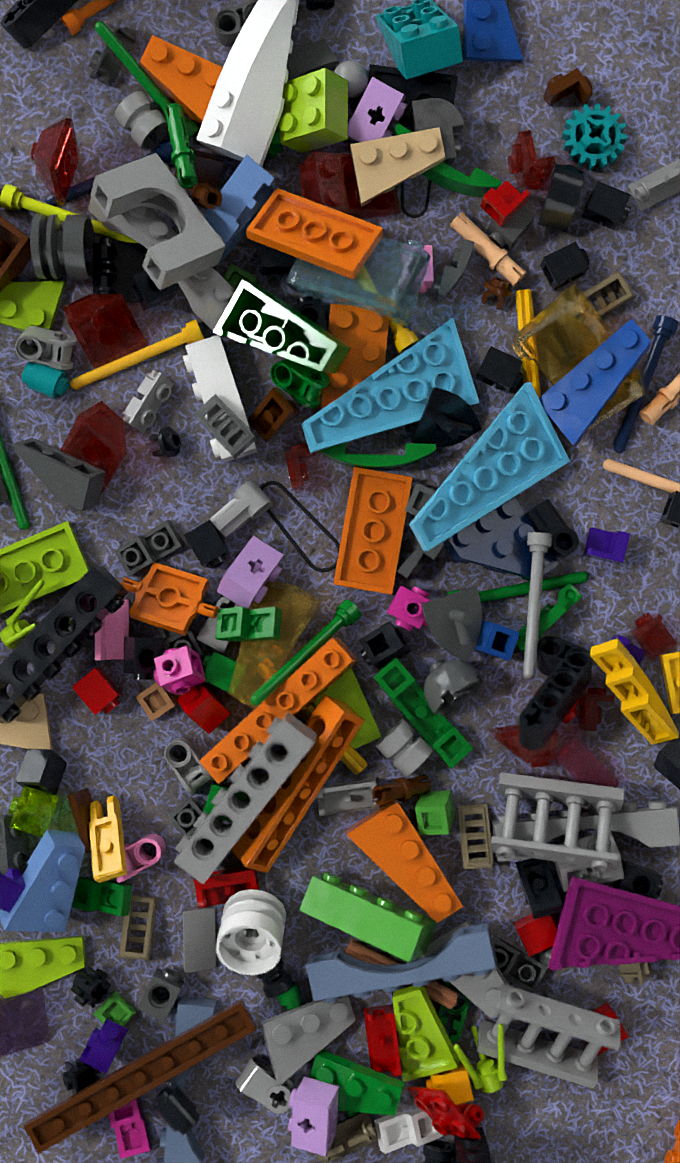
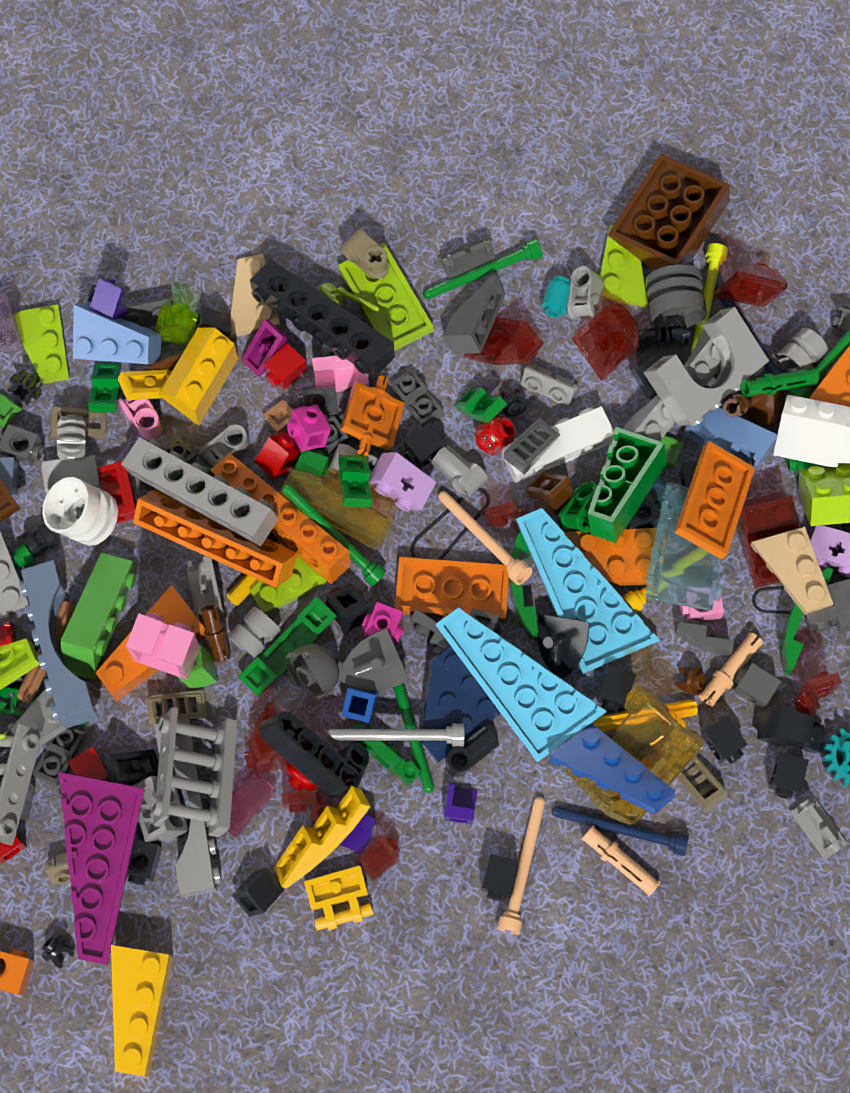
camera: 85 degrees right, 15 degrees down
(72, 713) = (263, 347): none -> magenta slope
(98, 789) = (200, 373): none -> yellow slope
(162, 938) = (71, 438): none -> light grey gear
(167, 478) = (480, 405): none -> green slope
(189, 335) = (613, 411): yellow piece -> none
(204, 465) = (495, 435): none -> red head
(366, 457) = (517, 570): none -> light nougat piece
(424, 851) = (163, 645): none -> bright pink piece
(504, 202) = (772, 671): red panel -> none

